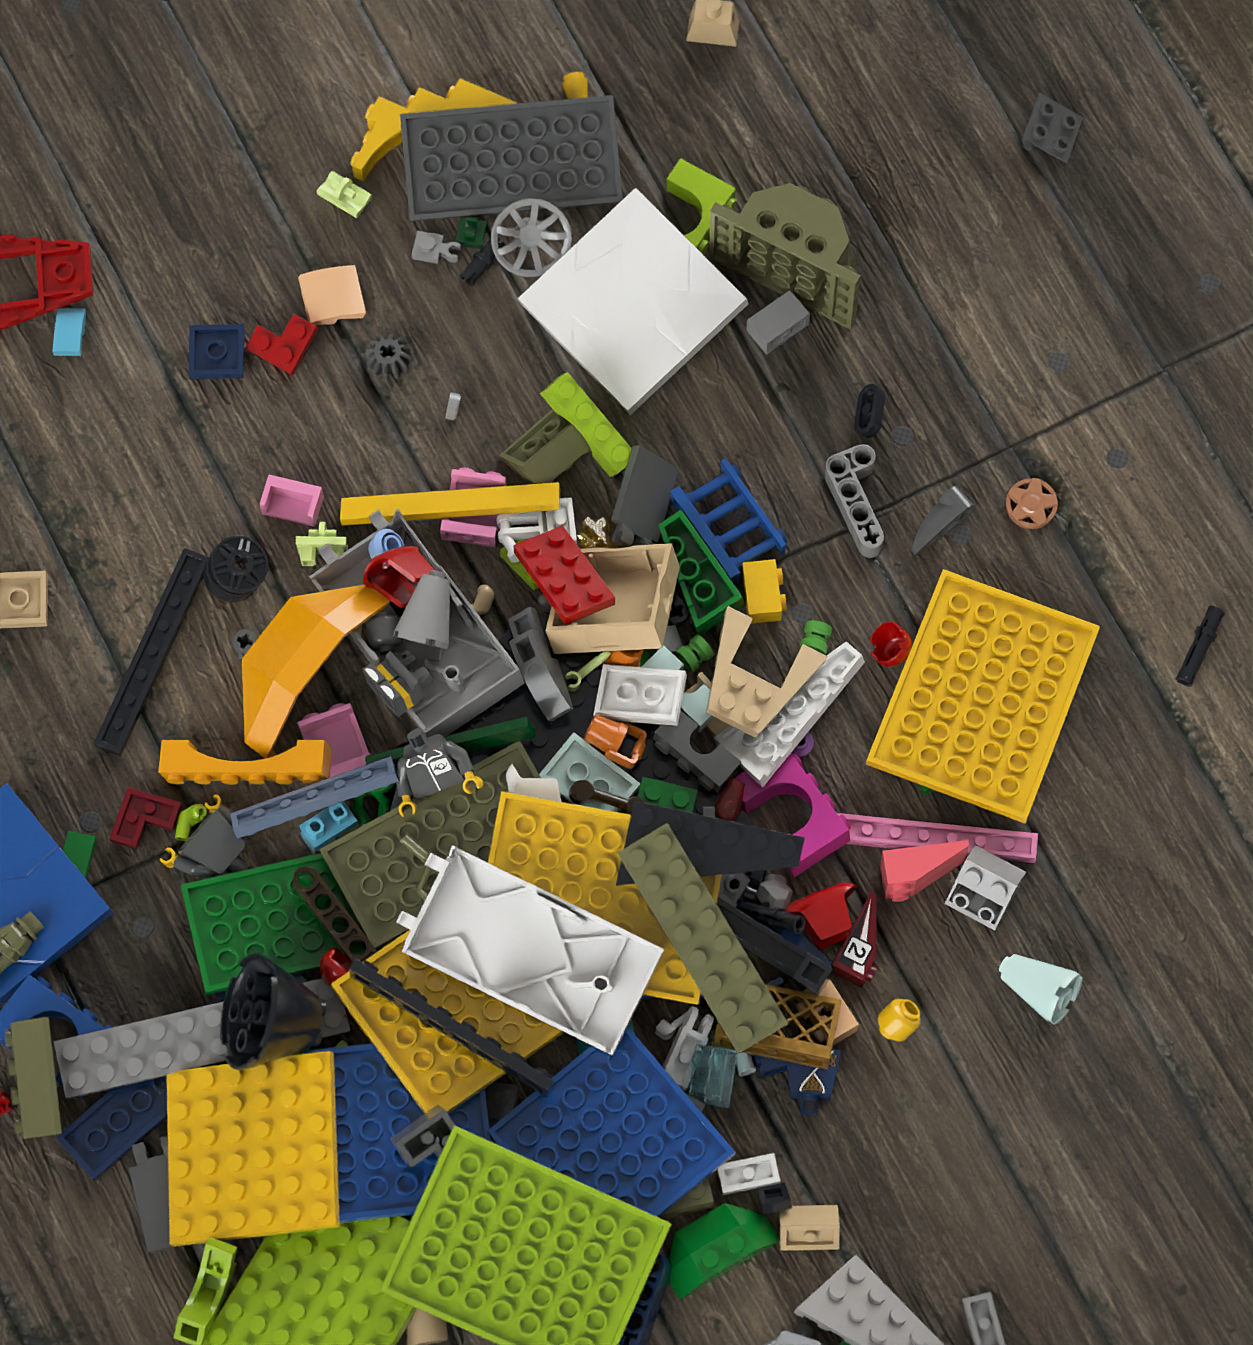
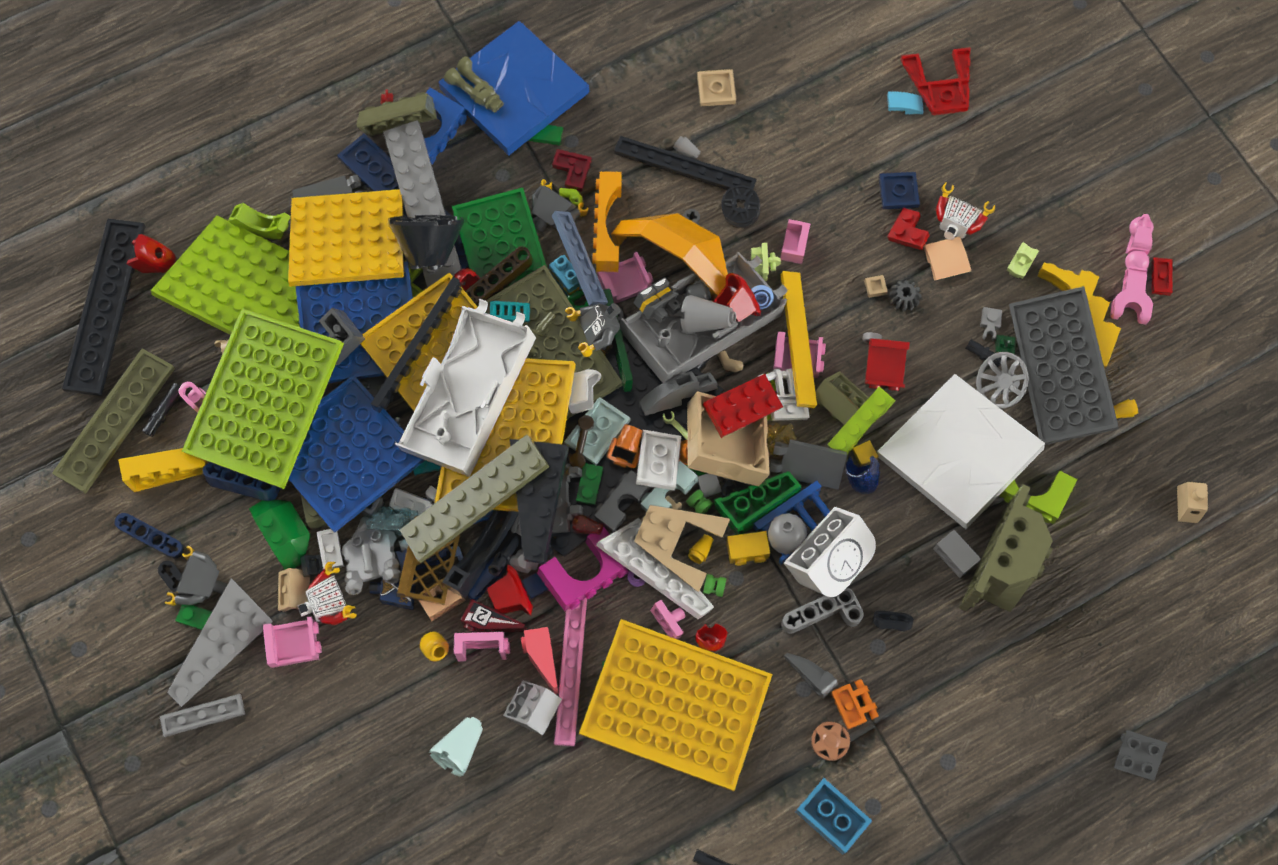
camera: 85 degrees right, 0 degrees up
(120, 649) = (686, 148): none -> light grey cone
(269, 272) = (959, 217): none -> torso
(370, 395) = (876, 286): none -> tan plate
(378, 19) = (1162, 276): none -> red plate
(388, 923) = (502, 305): none -> teal slope
(400, 57) = (1135, 277): none -> bright pink piece
(496, 389) = (886, 363): none -> red panel
(628, 428) = (864, 452): none -> yellow tile
(663, 430) = (863, 478): none -> clear blue piece
(749, 533) = (787, 533): none -> light grey cylinder
(763, 655) = (700, 550): none -> yellow cone
(767, 1111) = (370, 557): none -> light grey shield
(781, 473) = (833, 553): none -> white brick
(806, 882) = (534, 585): none -> dark blue tile
(827, 1174) = (326, 599): none -> torso
(864, 701) = (668, 620): none -> bright pink tile
(887, 1224) = (291, 642): none -> bright pink panel
(900, 979) = (484, 640): none -> bright pink panel
(985, 475) = (849, 706): none -> orange plate
(1134, 502) = (833, 816): none -> dark azure brick

